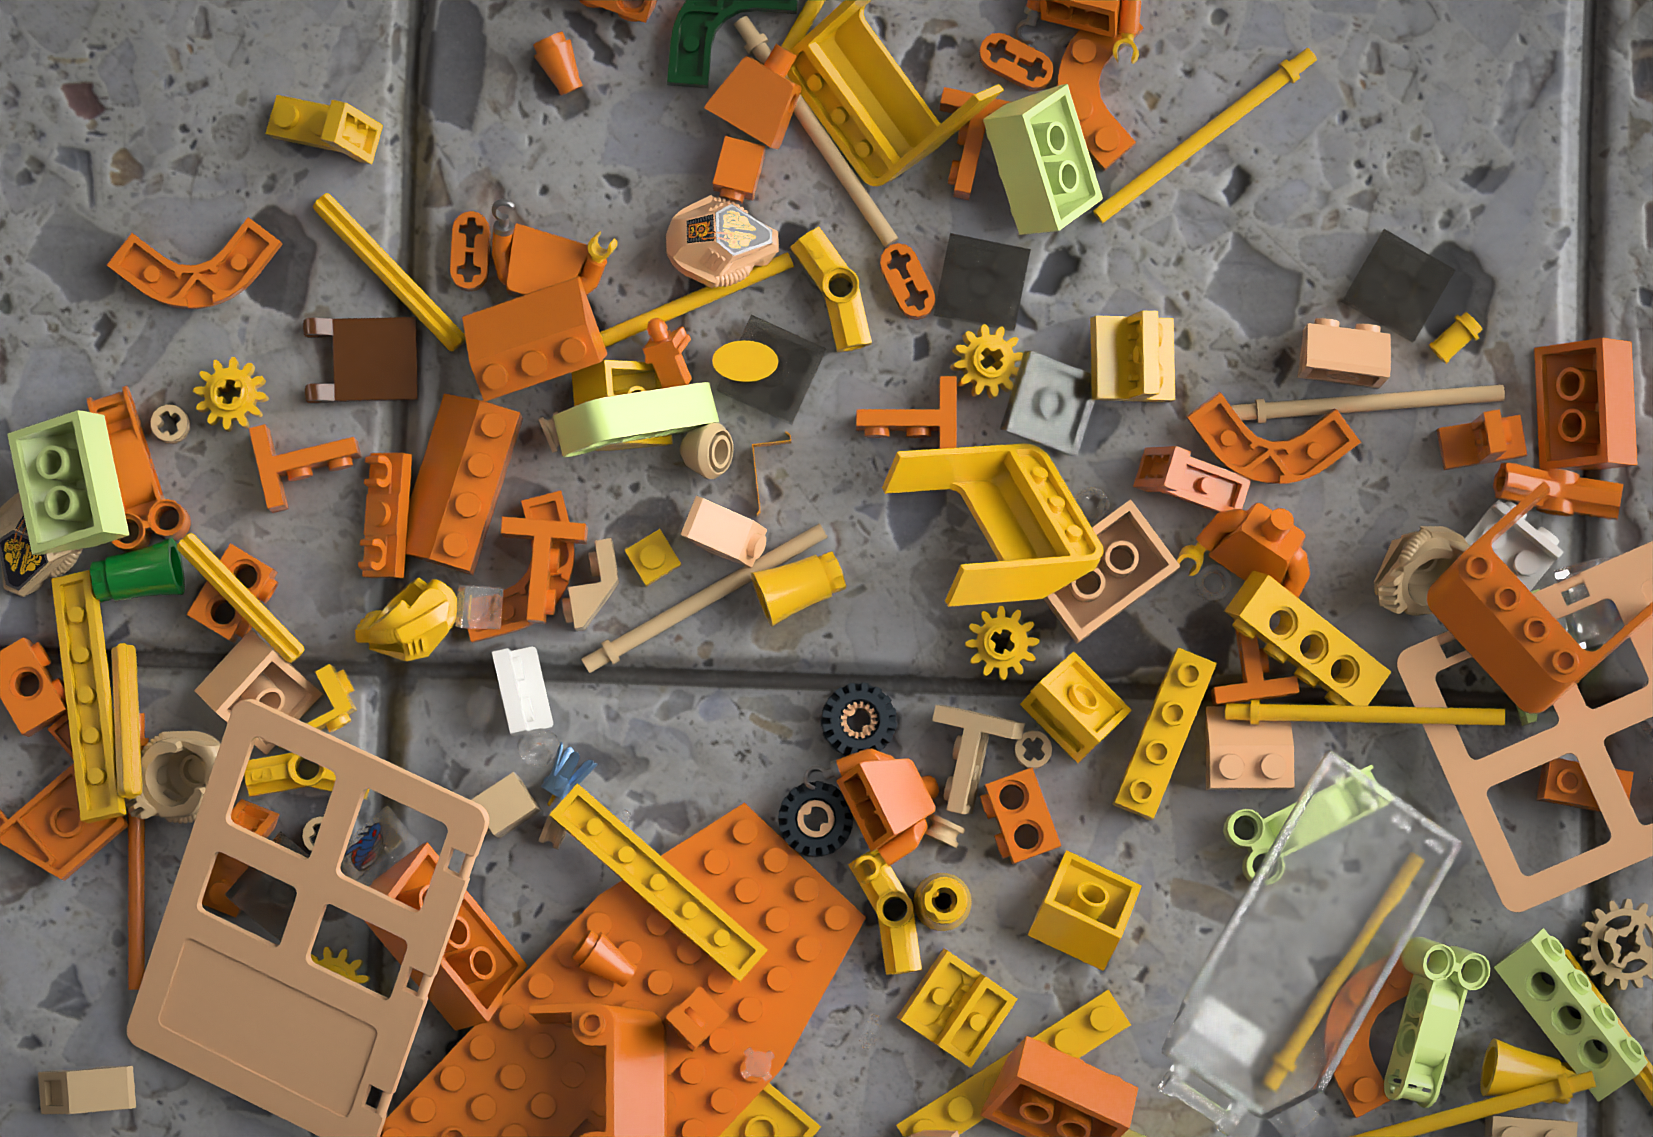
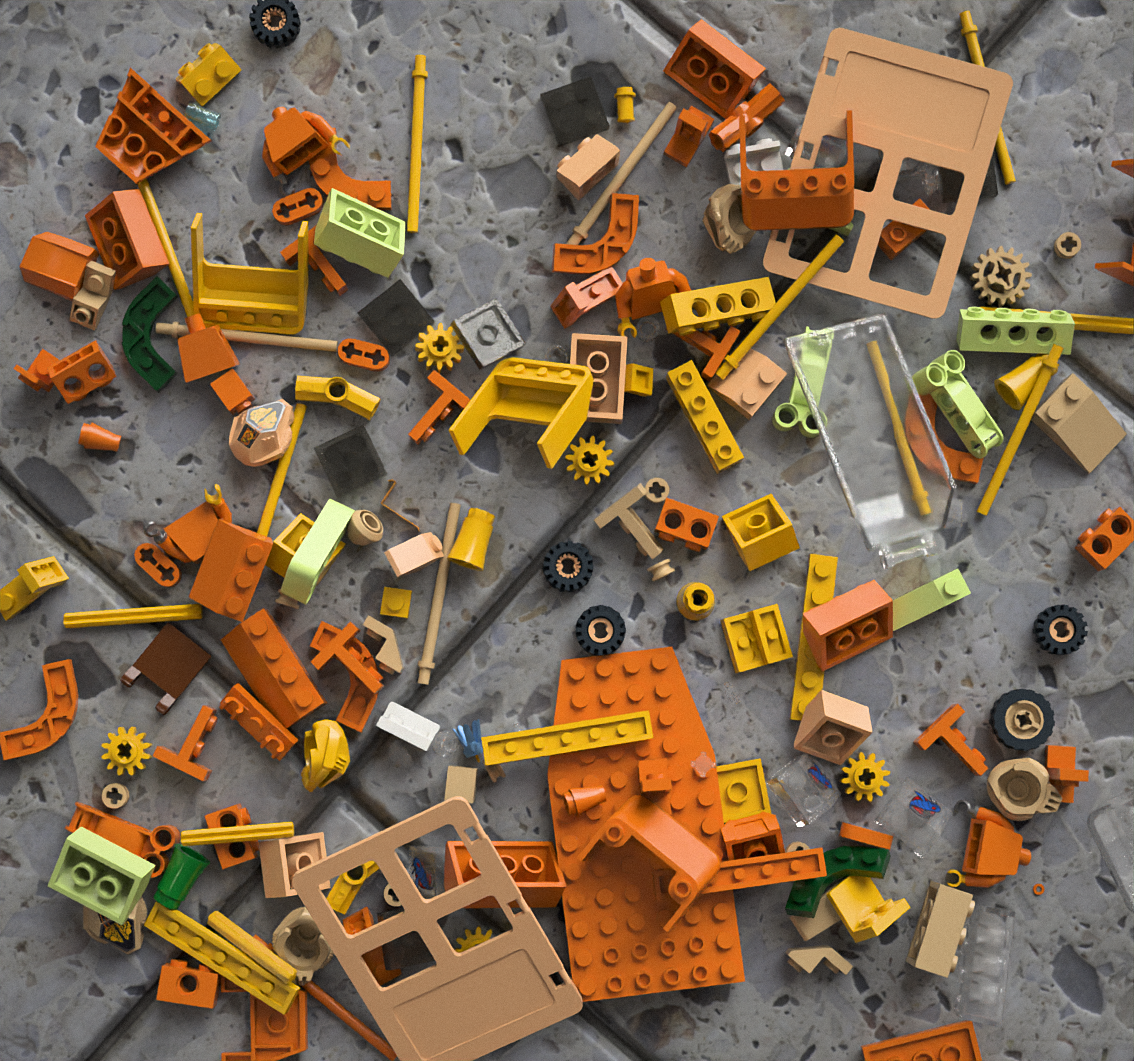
camera: 55 degrees left, 0 degrees up
(337, 687) = (327, 821): yellow bracket -> none
(479, 607) = (347, 713): clear plate -> none
(665, 353) = (296, 508): orange piece -> none
(745, 361) = (334, 470): yellow sticker -> none
(886, 801) = (621, 586): orange torso -> none
(897, 938) = (661, 625): yellow piece -> none
(1075, 707) = (653, 450): yellow bracket -> none
(1132, 358) = (499, 273): yellow bracket -> none
(1144, 621) = (638, 380): none -> yellow plate

